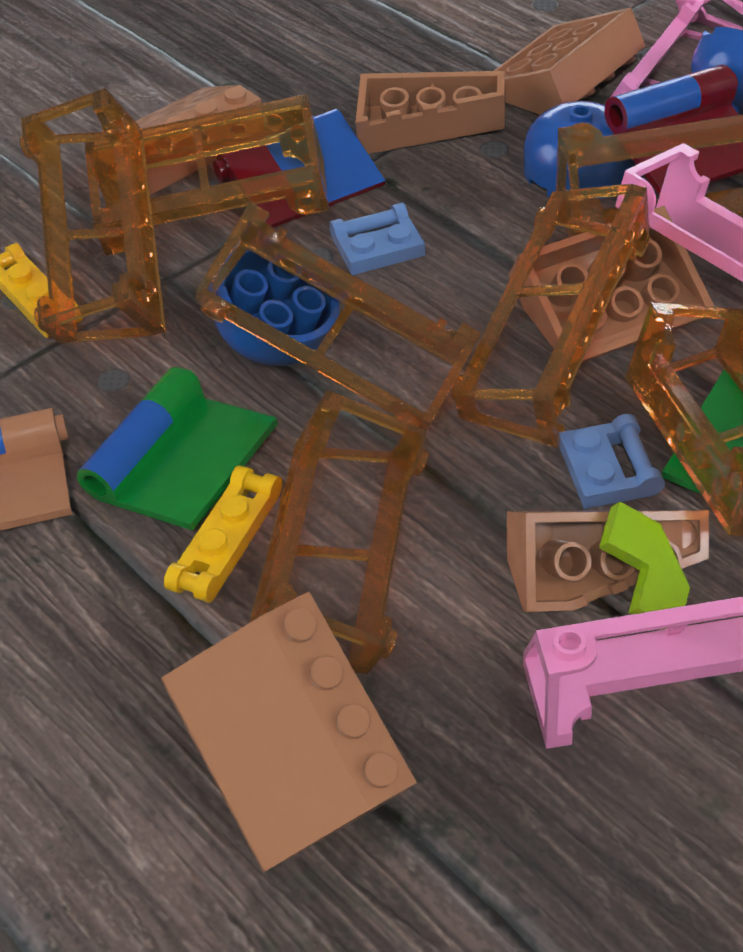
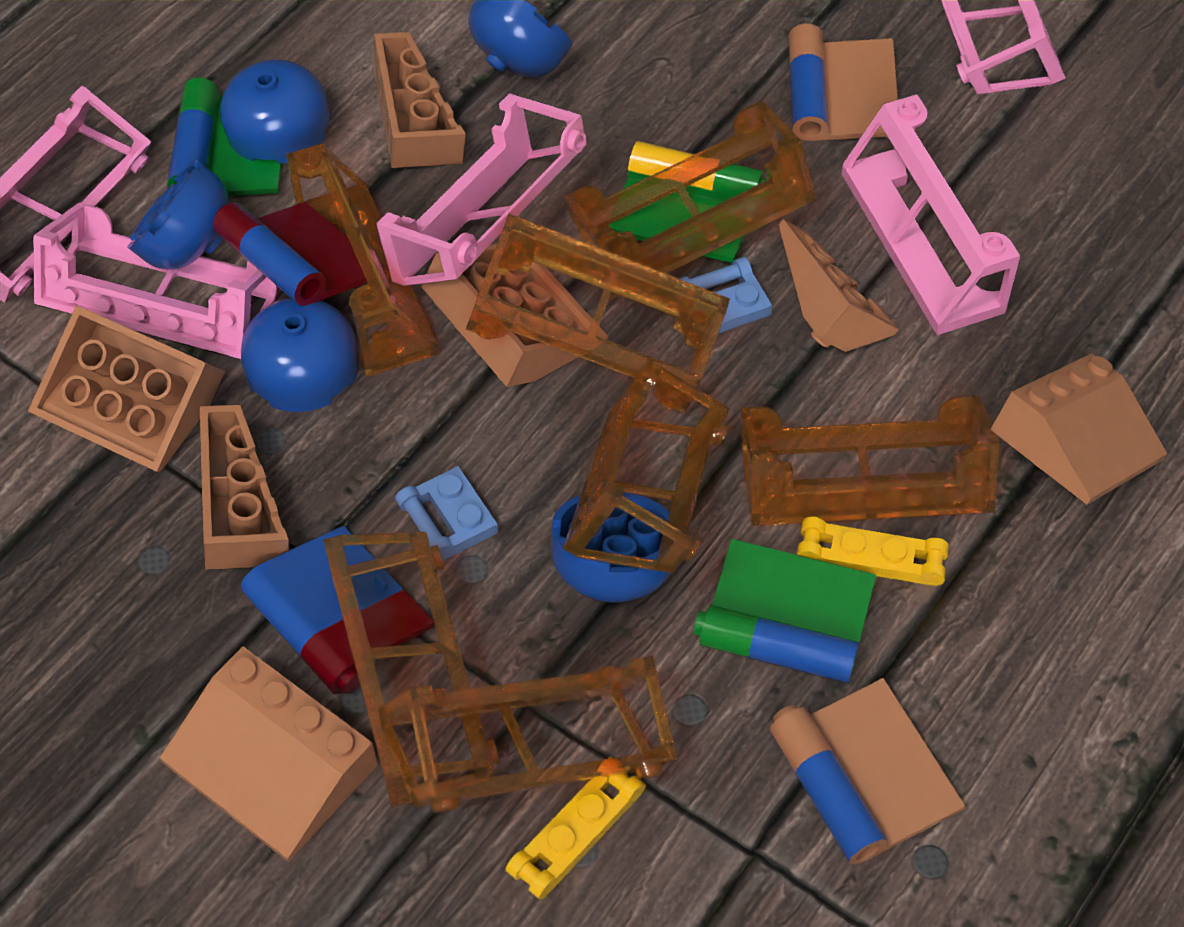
camera: 105 degrees left, 10 degrees up
(645, 546) = (845, 250): lime tile -> none

